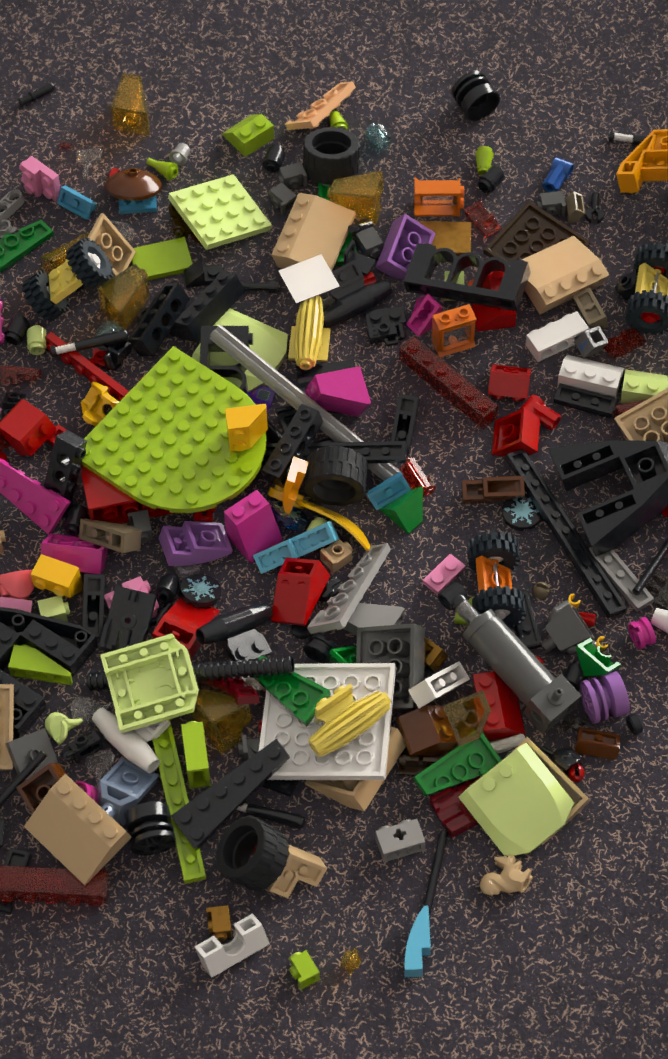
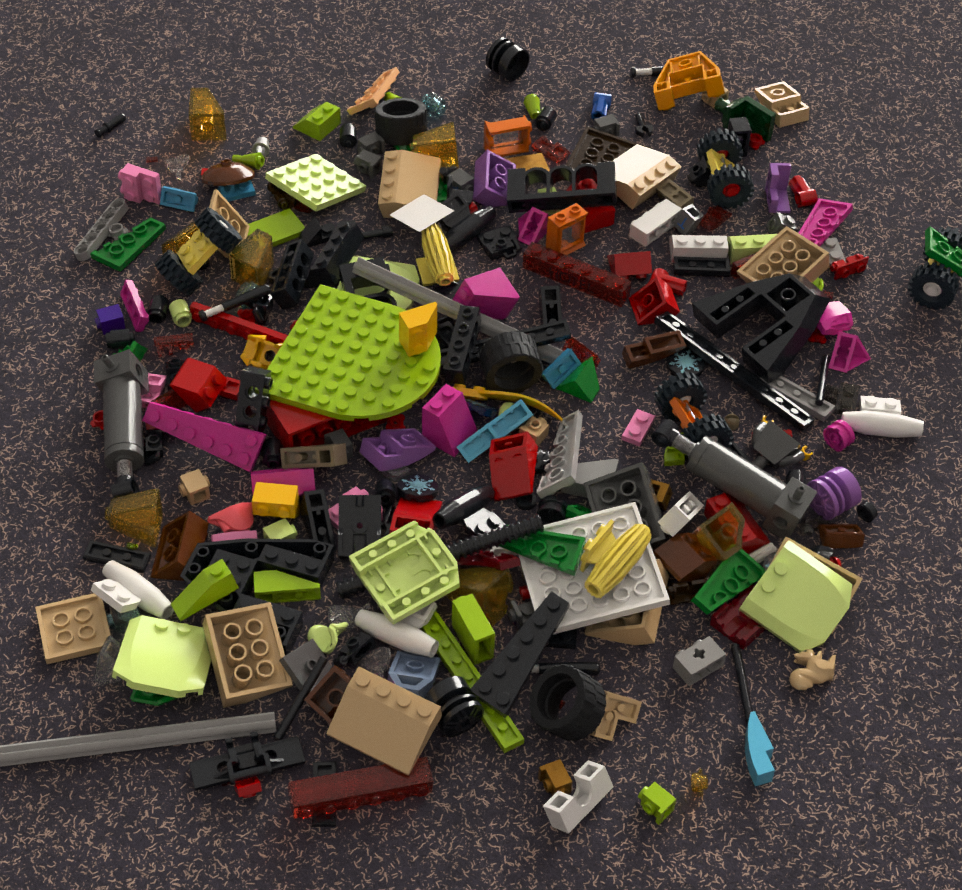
camera: 20 degrees left, 10 degrees down
(293, 482) = (476, 366): light orange slope -> none
(574, 207) = (627, 126): dark tan piece -> none
(593, 660) = (813, 464): green slope -> none

